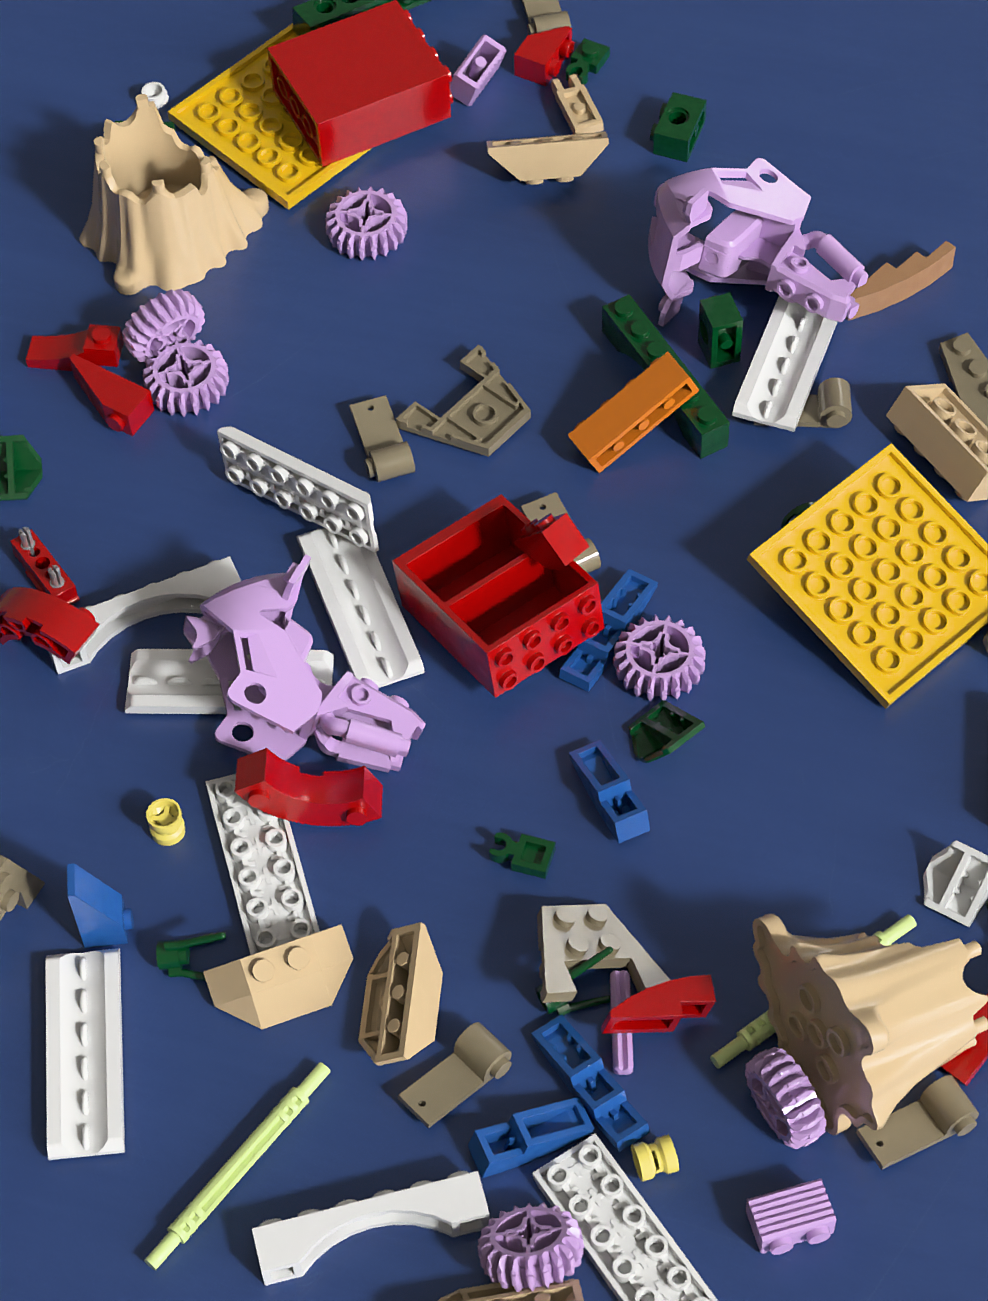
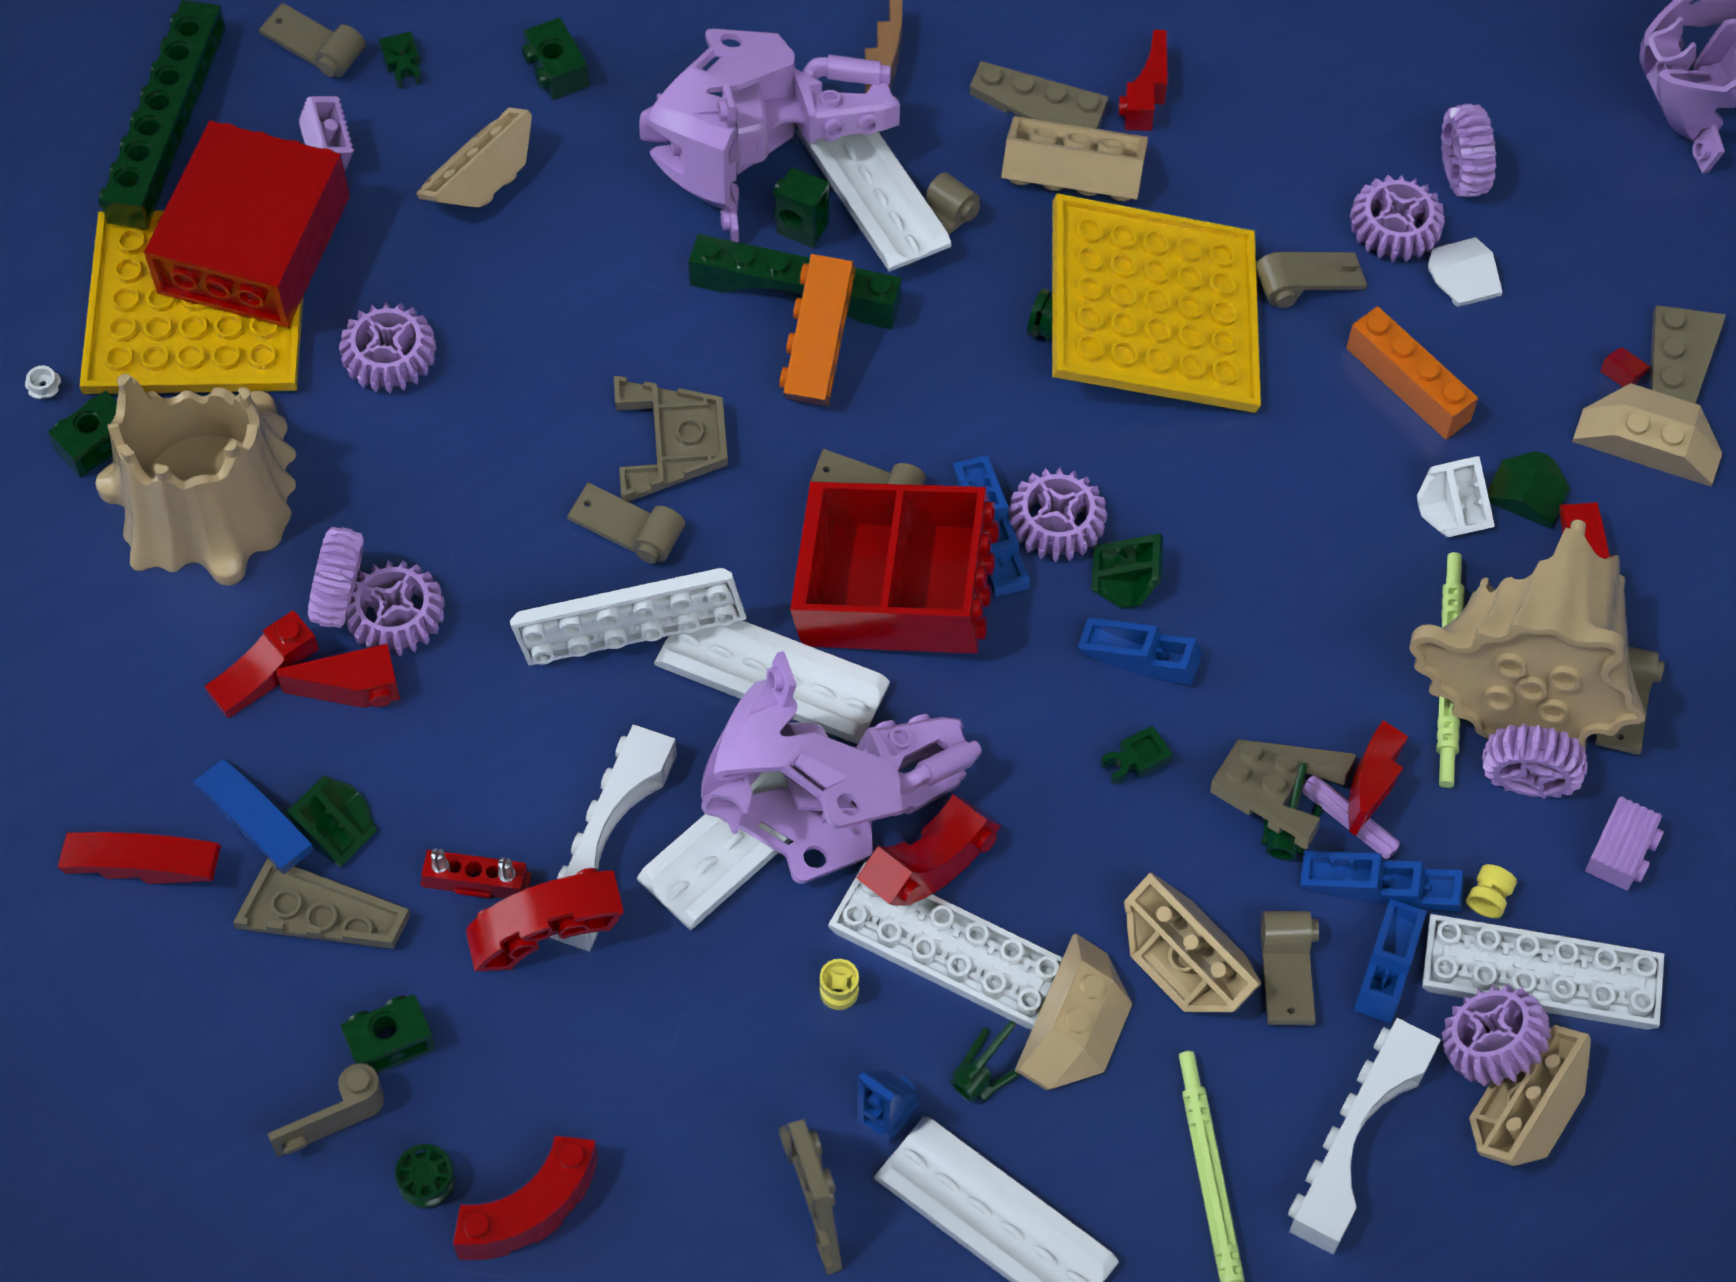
camera: 50 degrees left, 5 degrees up
(542, 55) = (361, 80): red slope -> none
(552, 541) = (917, 483): red slope -> none
(577, 106) = (445, 104): tan hinge -> none

